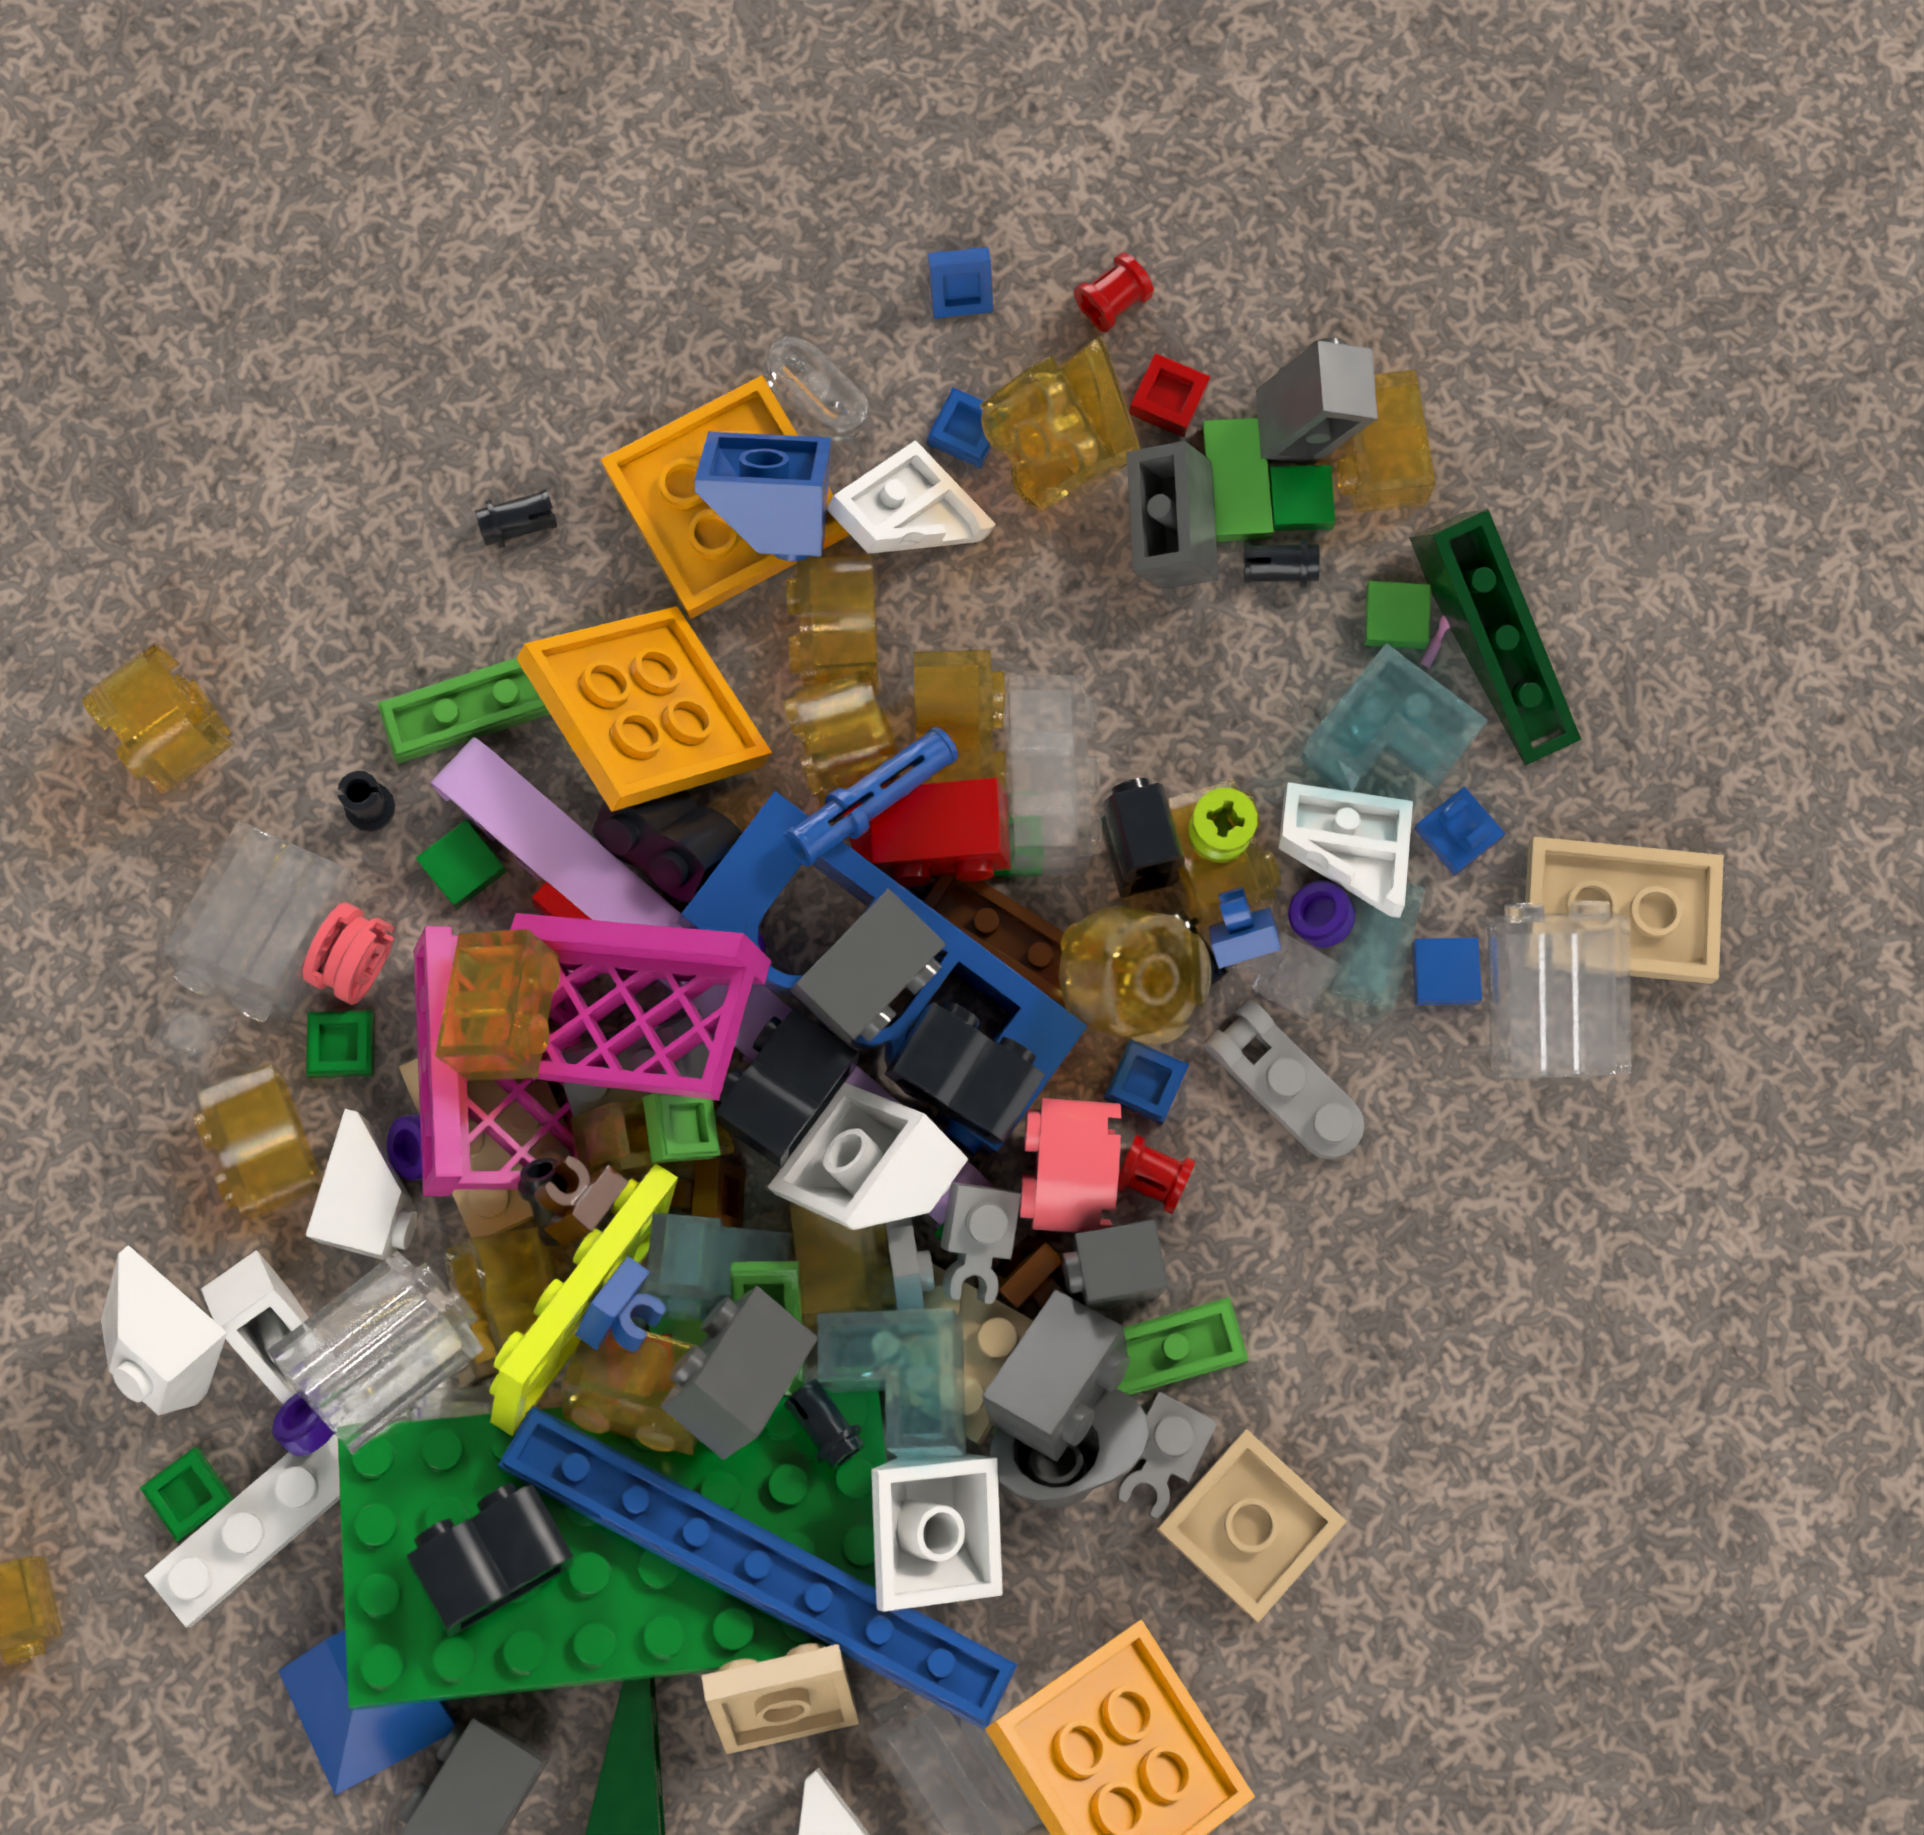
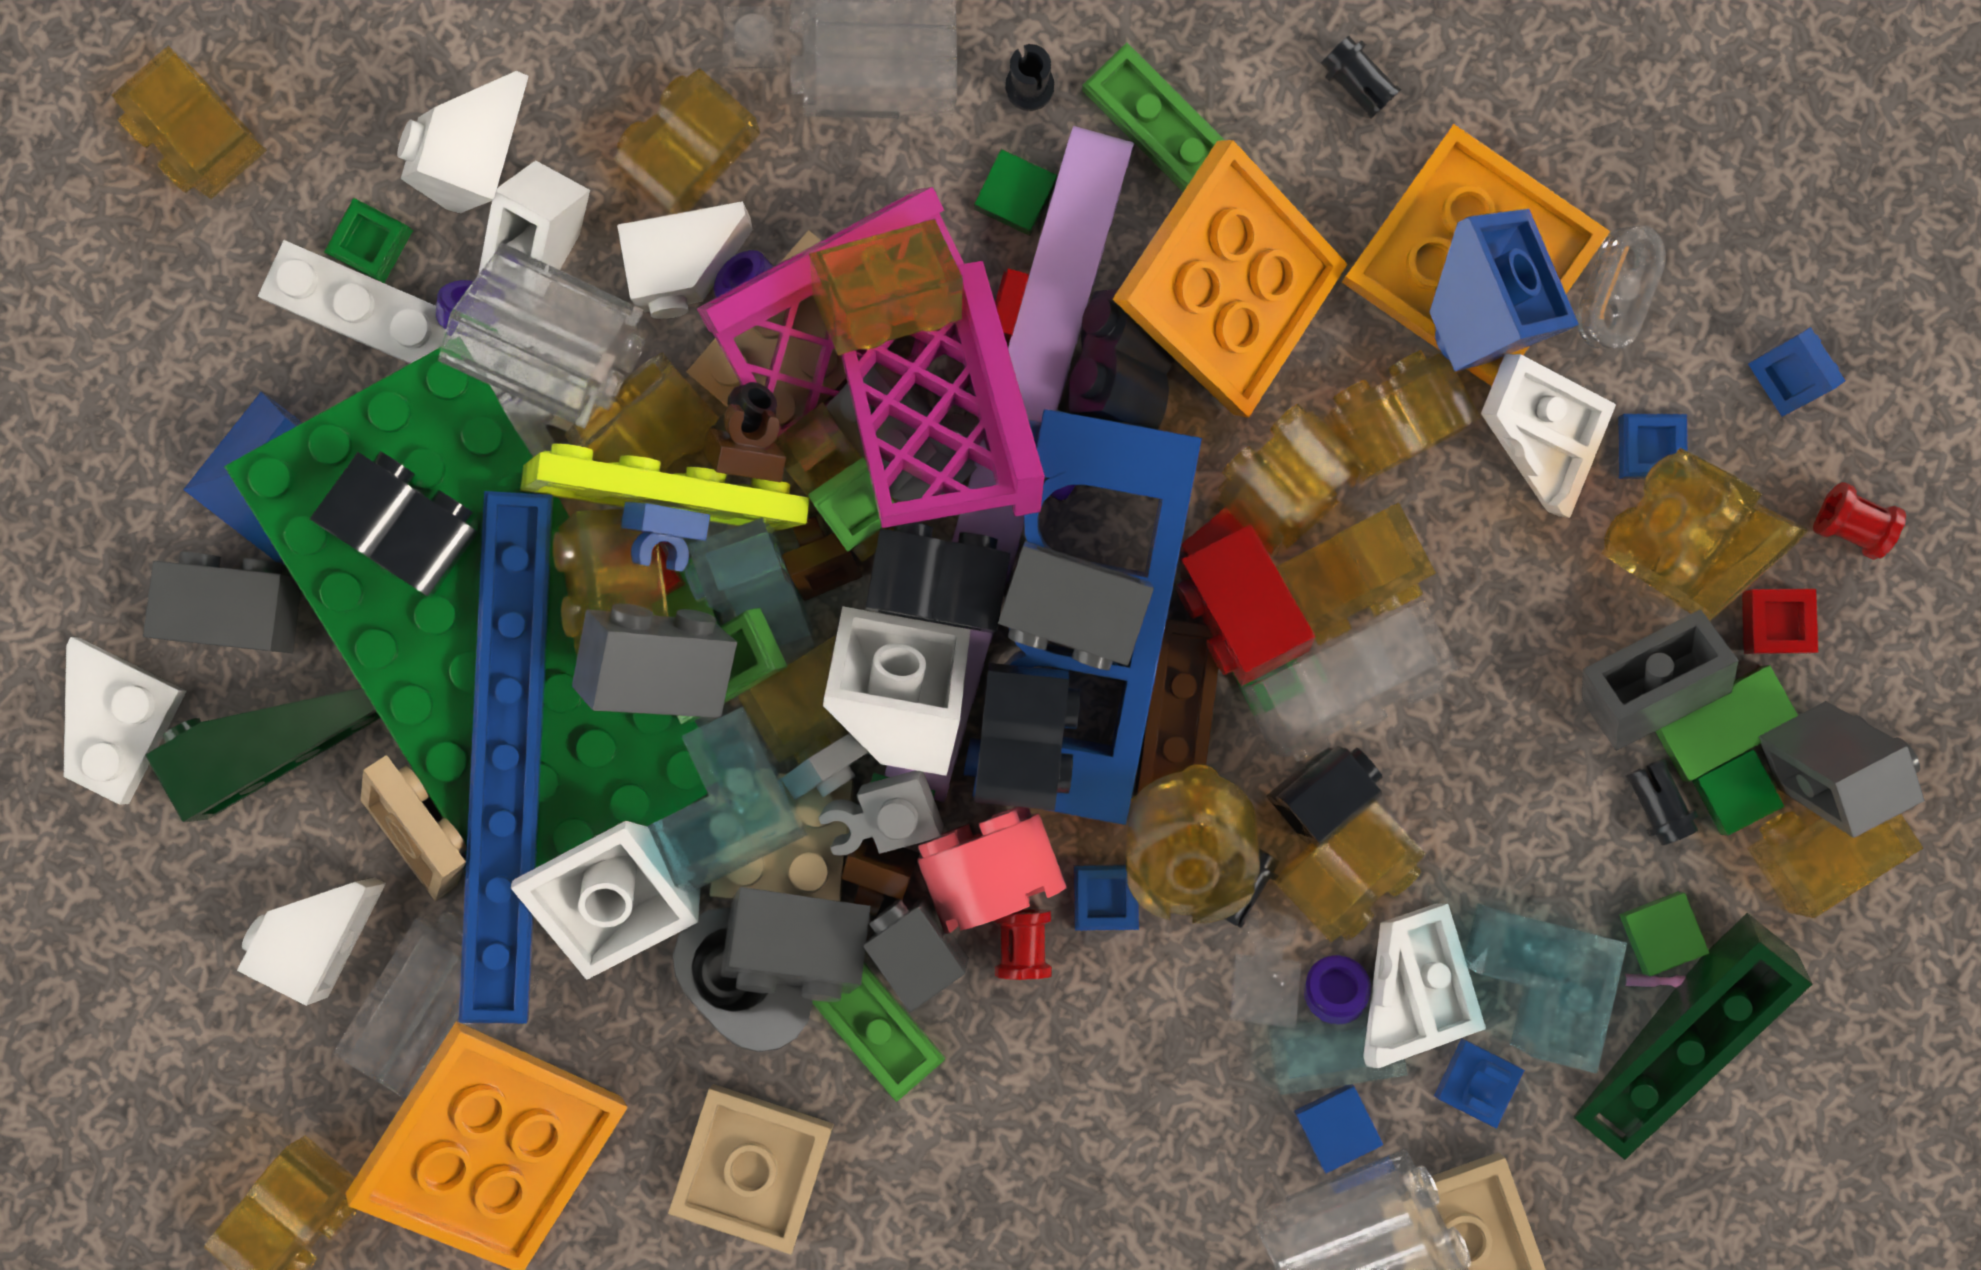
camera: 75 degrees right, 10 degrees up
(340, 1044) = (807, 170): green tile -> none
(348, 953) = (884, 133): coral wheel -> none
(816, 836) = (1173, 495): blue pin -> none
(825, 1424) = (657, 757): black pin -> none
(1173, 1448) = (792, 1071): light grey plate -> none
(1217, 838) = (1358, 866): lime wheel -> none
(1242, 932) = (1280, 928): blue tile -> none
(1288, 1084) = (1164, 1028): light grey plate -> none

